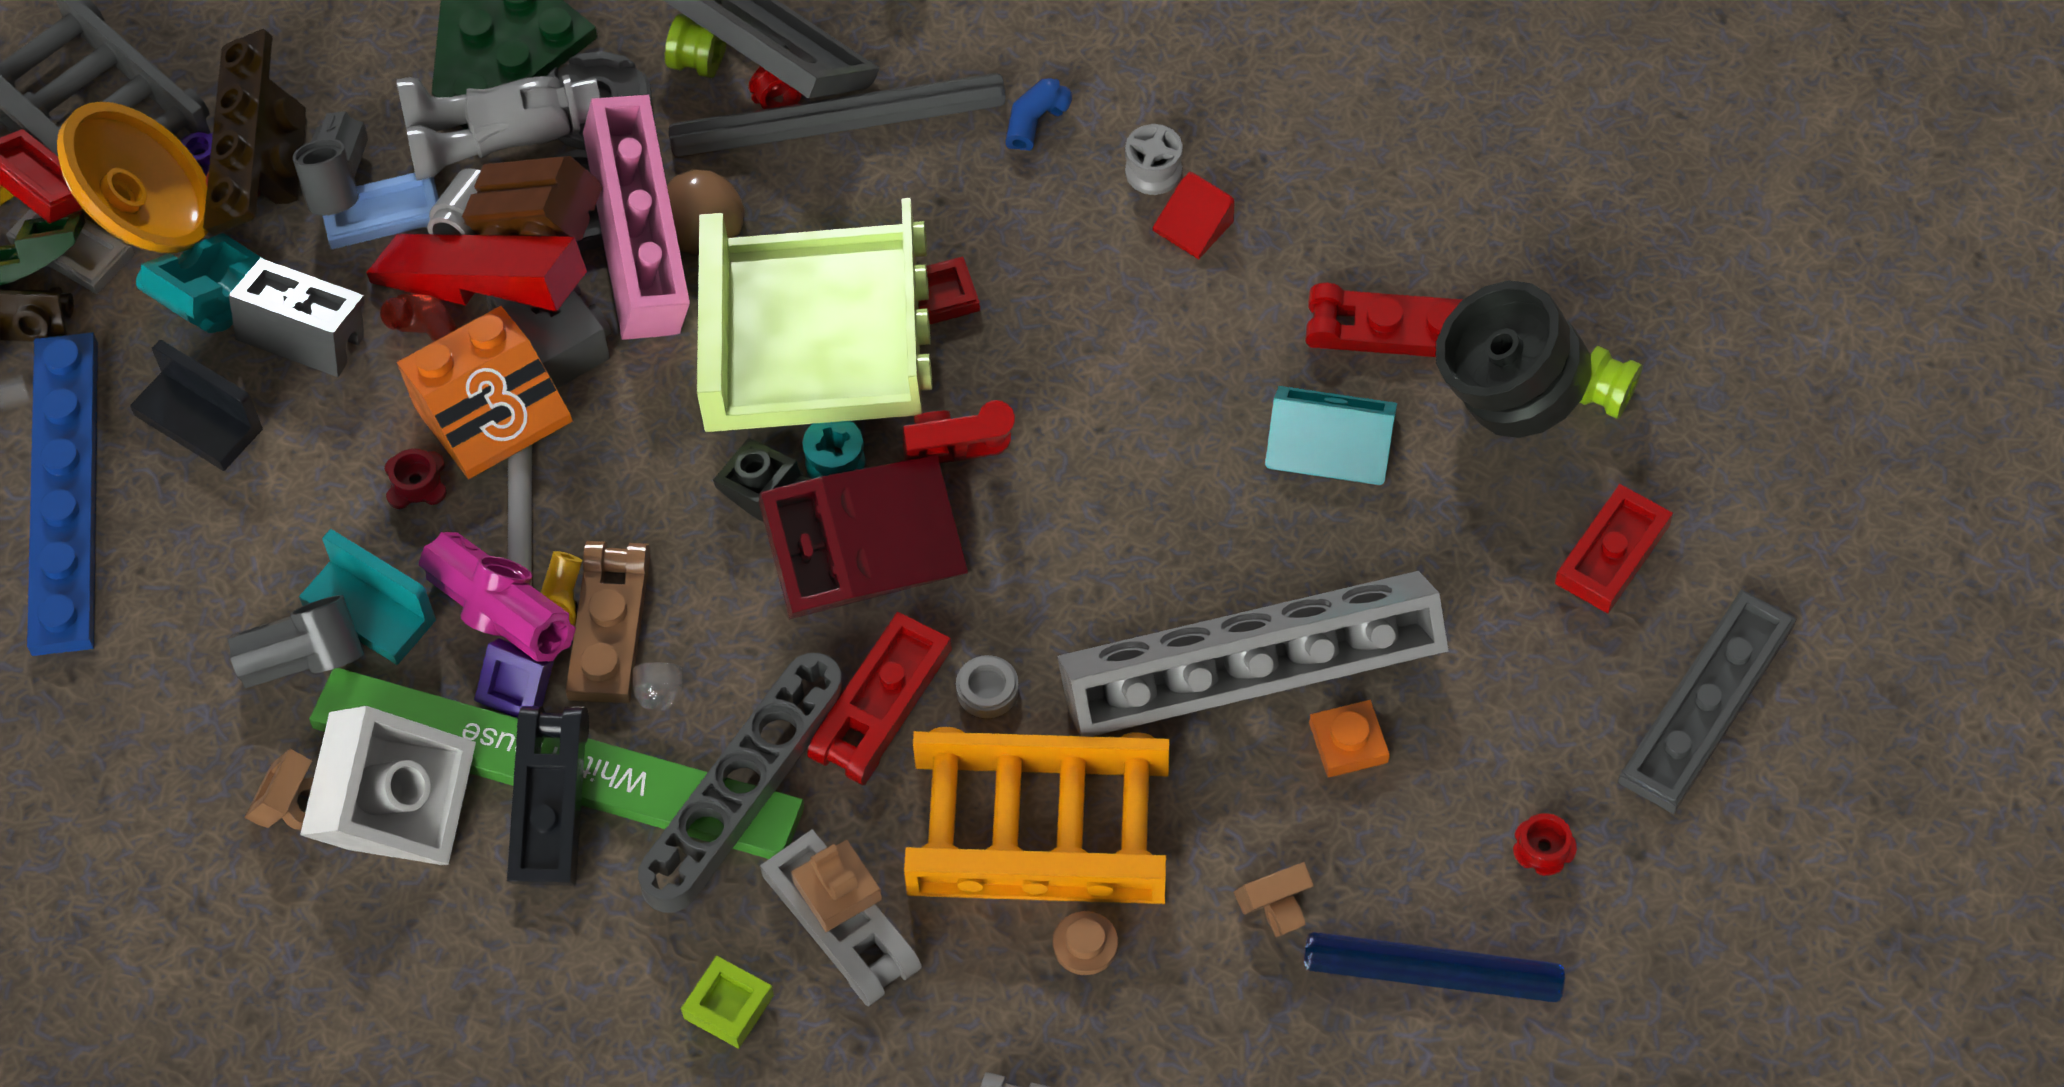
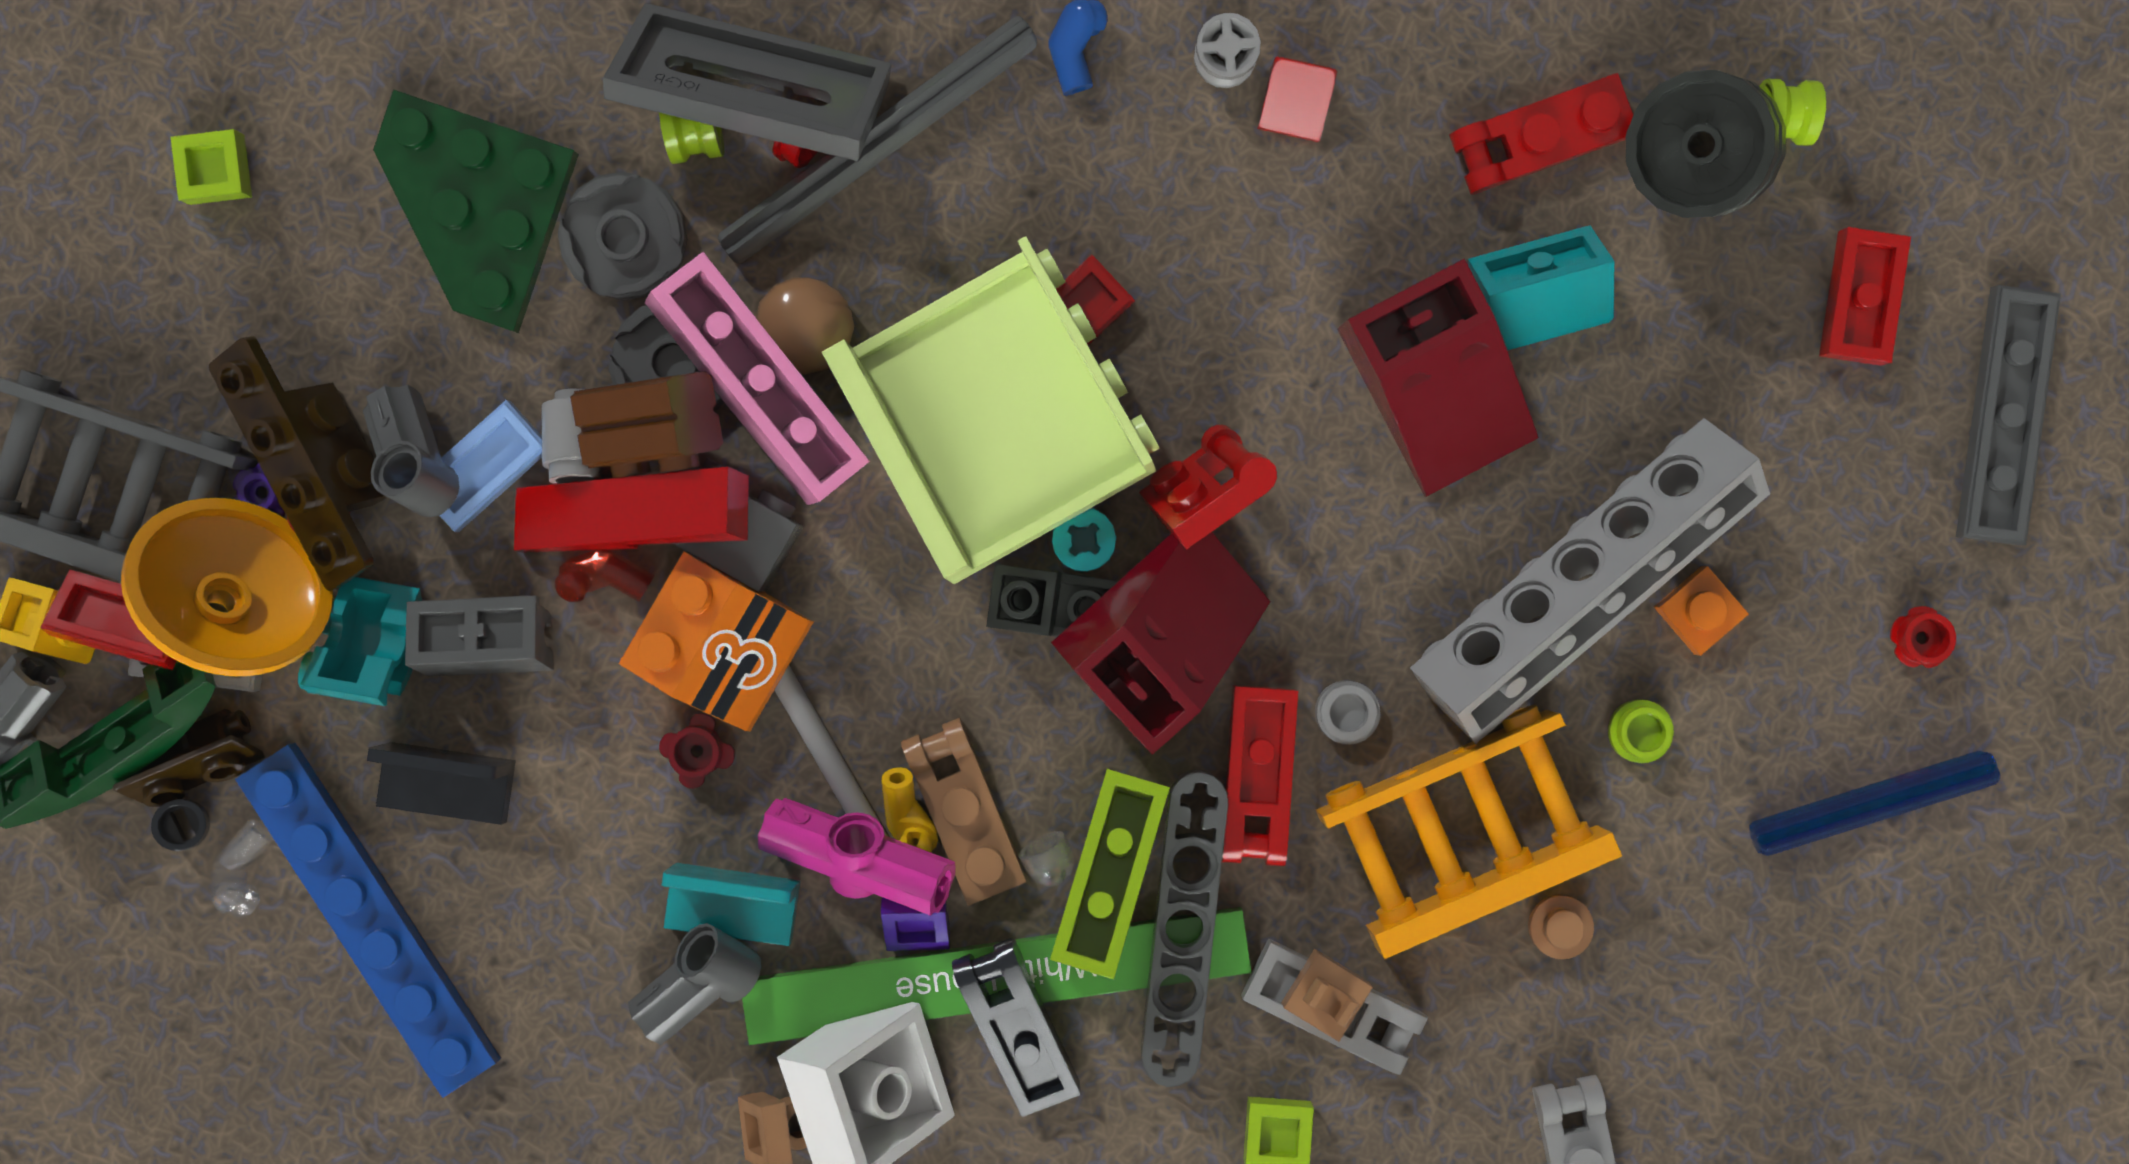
camera: 30 degrees left, 30 degrees up
(497, 118) = (545, 319): light grey piece -> none
(698, 697) = (1110, 874): none -> lime brick
(1204, 449) = (1441, 377): none -> dark red slope
(1243, 812) = (1640, 731): none -> lime plate
(1277, 897) = (1712, 806): medium nougat tile -> none

